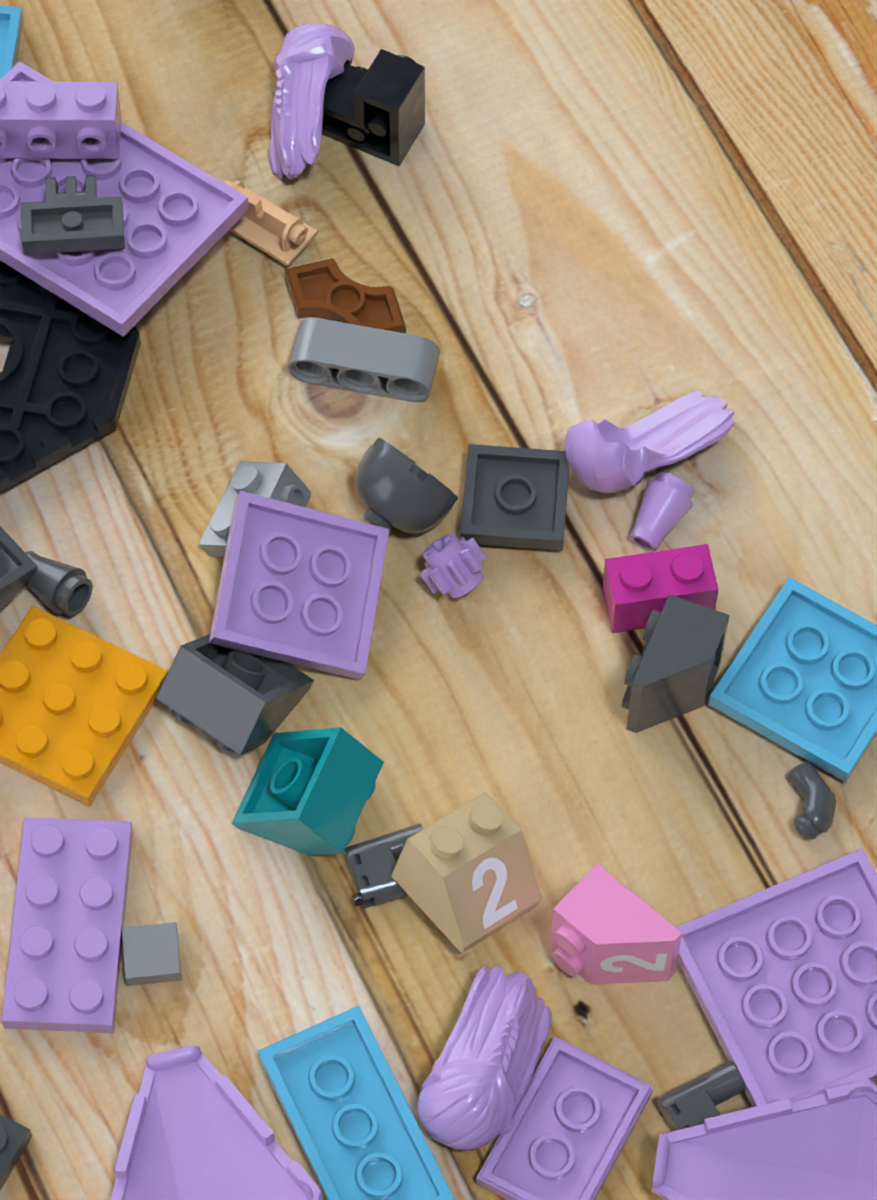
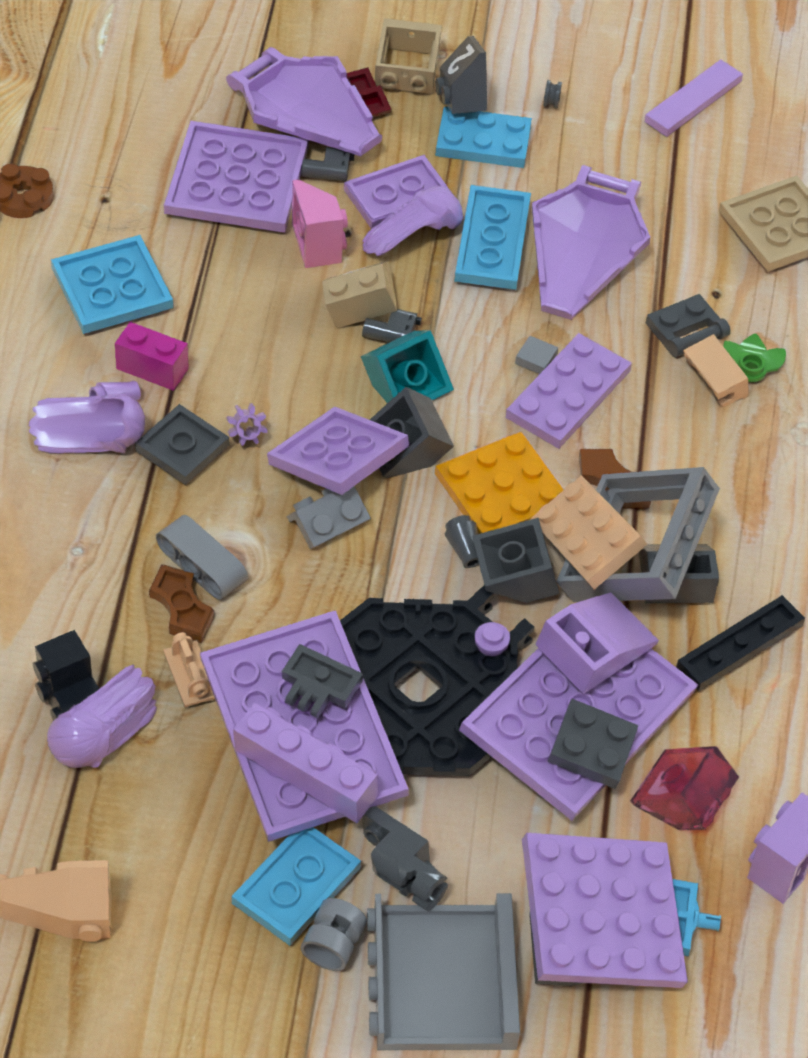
camera: 150 degrees left, 10 degrees down
(400, 491) = (242, 469): dark grey cylinder -> none
(676, 663) = (183, 305): dark grey slope -> none
(818, 803) = (159, 243): dark grey arm -> none

